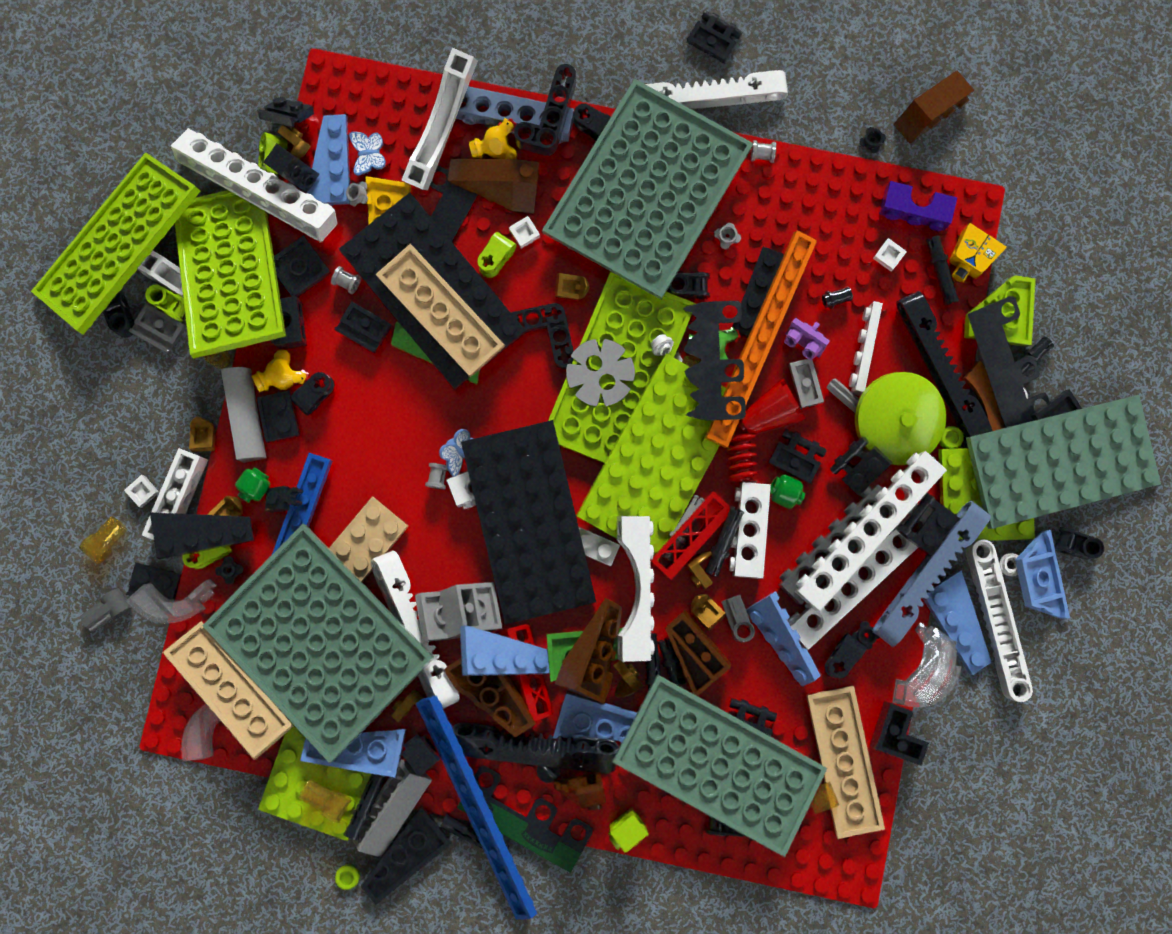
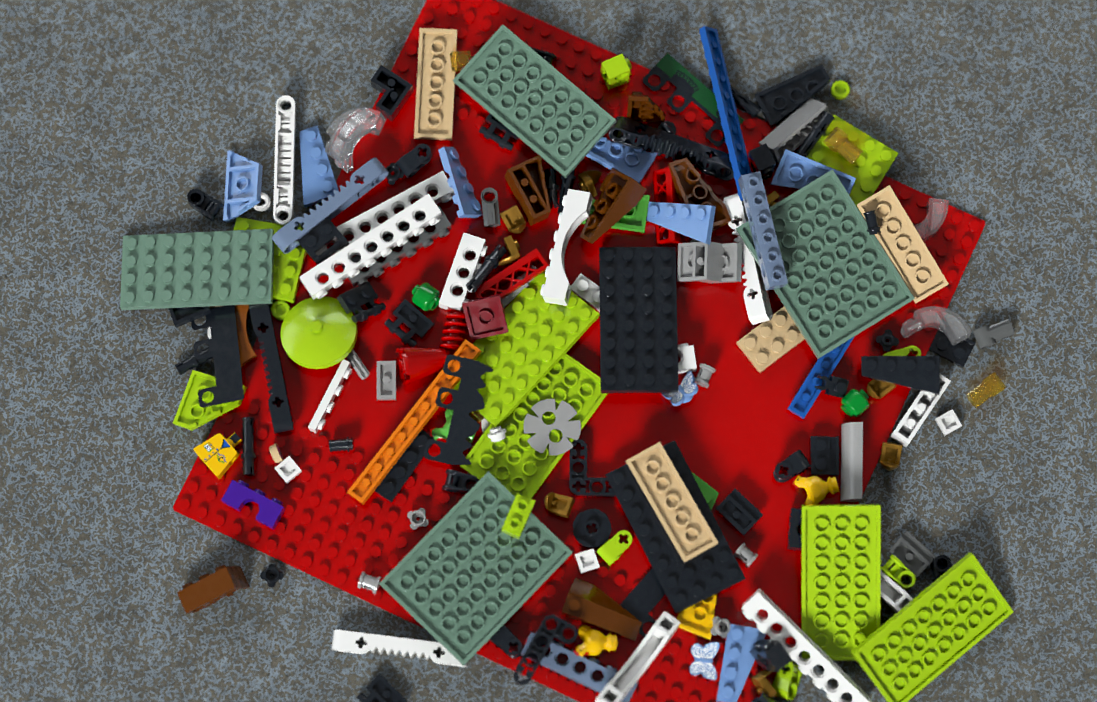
camera: 170 degrees left, 5 degrees down
(267, 705) = (872, 222): none -> black pin
(299, 267) = (781, 575): black plate -> none
(397, 658) = (763, 231): none -> sand blue brick
(522, 258) = (591, 517): none -> black plate
(613, 248) = (518, 516): none -> lime brick
(711, 478) = (485, 317): none -> dark red plate
(808, 337) = (374, 417): medium lavender hips -> none
(908, 269) = (276, 453): none -> tan tile

